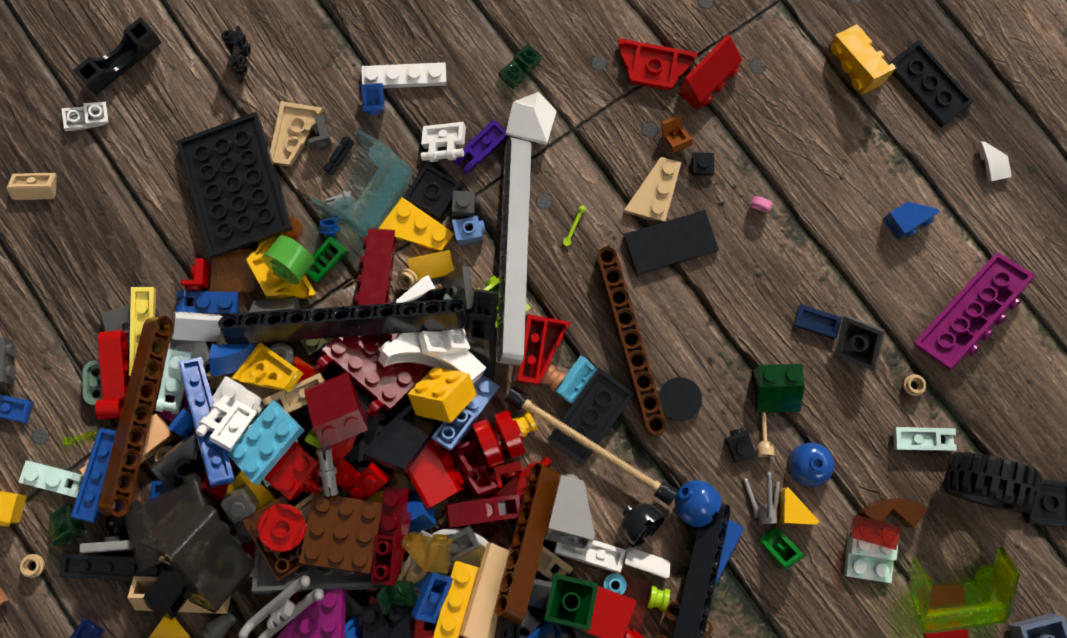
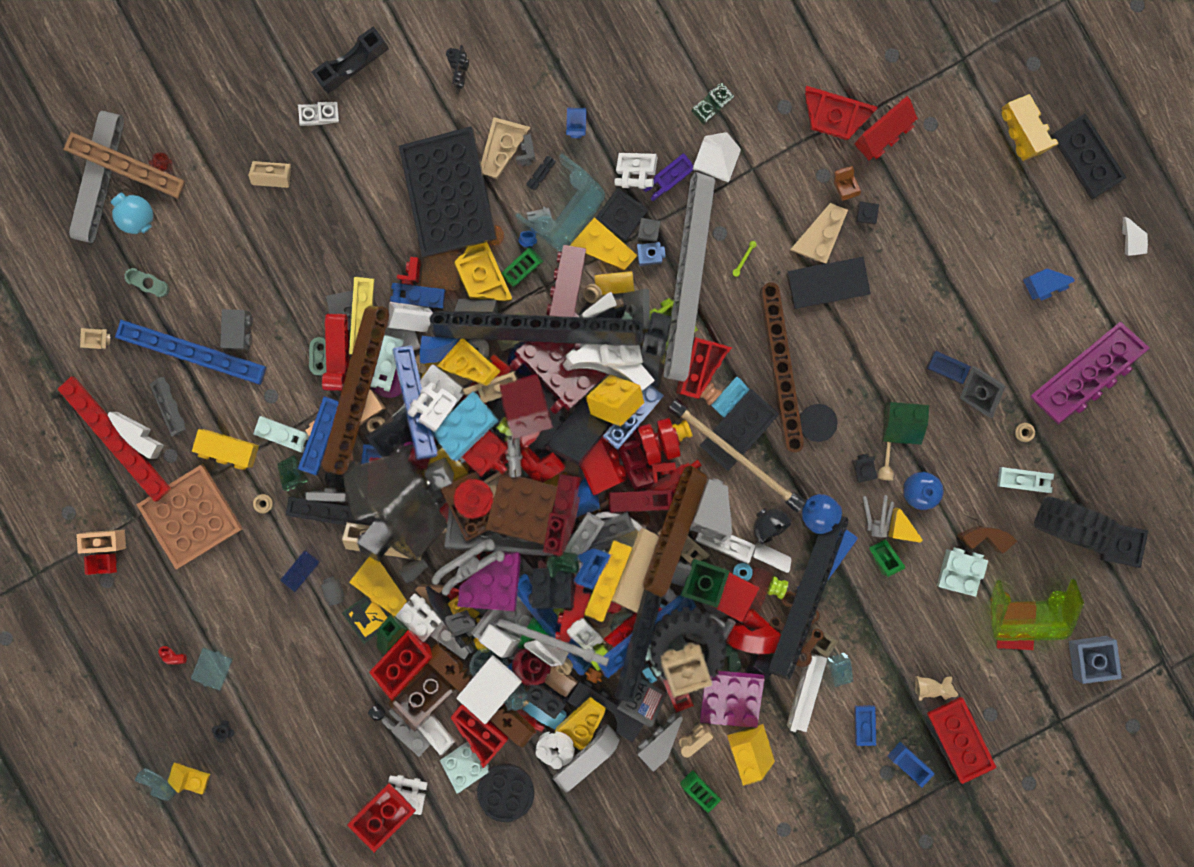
camera: 10 degrees right, 10 degrees up
(69, 441) = (294, 403): clear neon green hinge -> none
(183, 423) = (394, 400): blue slope -> none
(288, 260) = (492, 268): bright green piece -> none
(406, 75) = (607, 101): white plate -> none
(430, 553) = (593, 532): clear yellow slope -> none
(761, 204) = (914, 256): bright pink tile -> none
(875, 532) = (968, 554): clear red plate -> none

